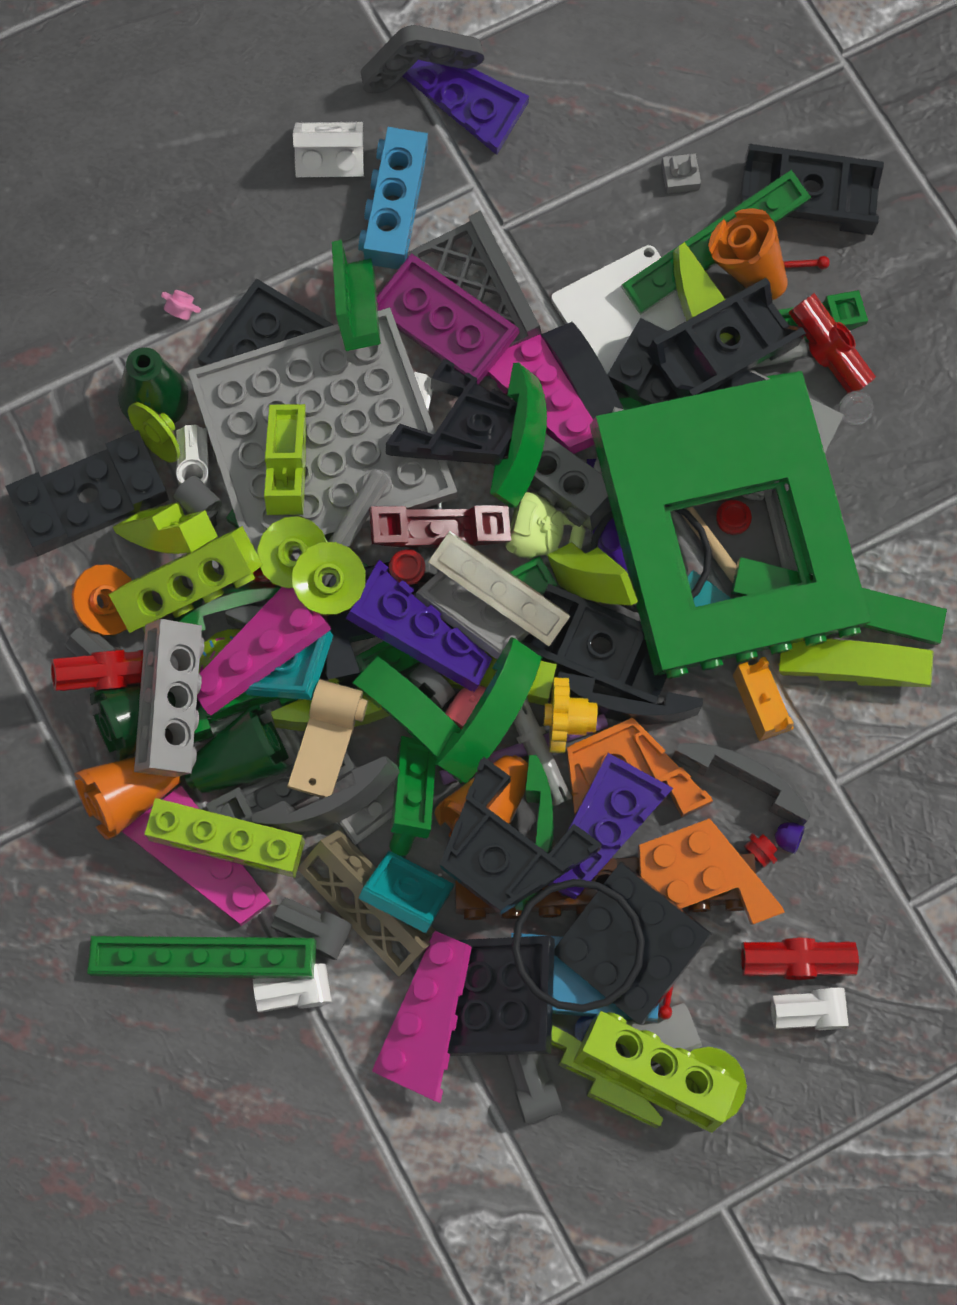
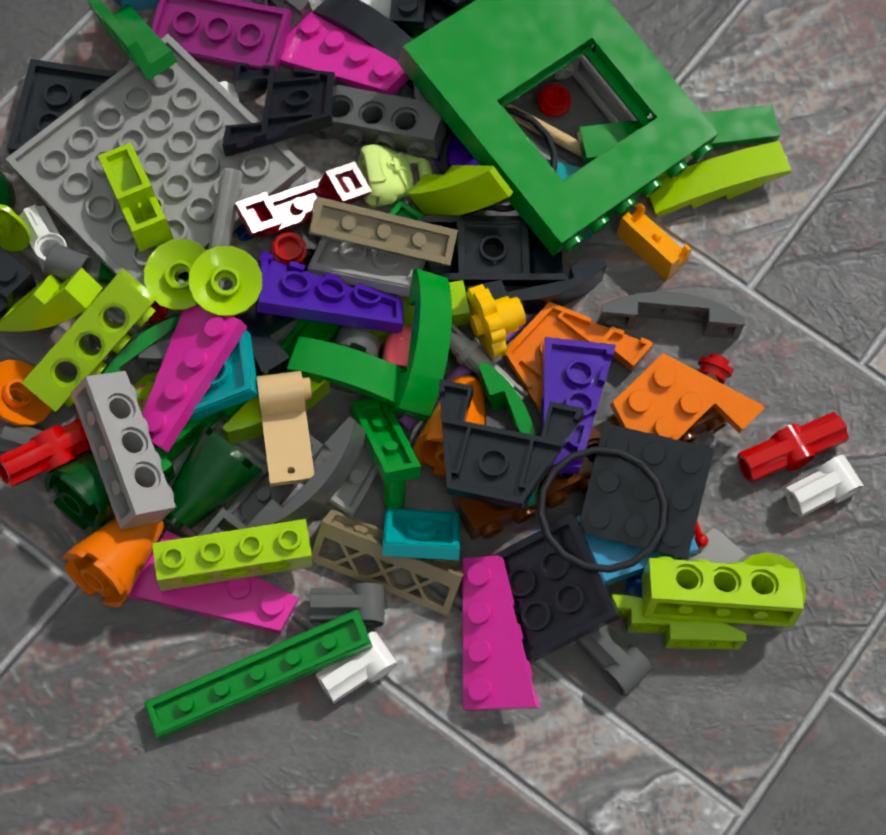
camera: 25 degrees left, 5 degrees down
(516, 473) = (351, 126): green slope -> none
(789, 836) = (732, 347): dark purple hinge -> none

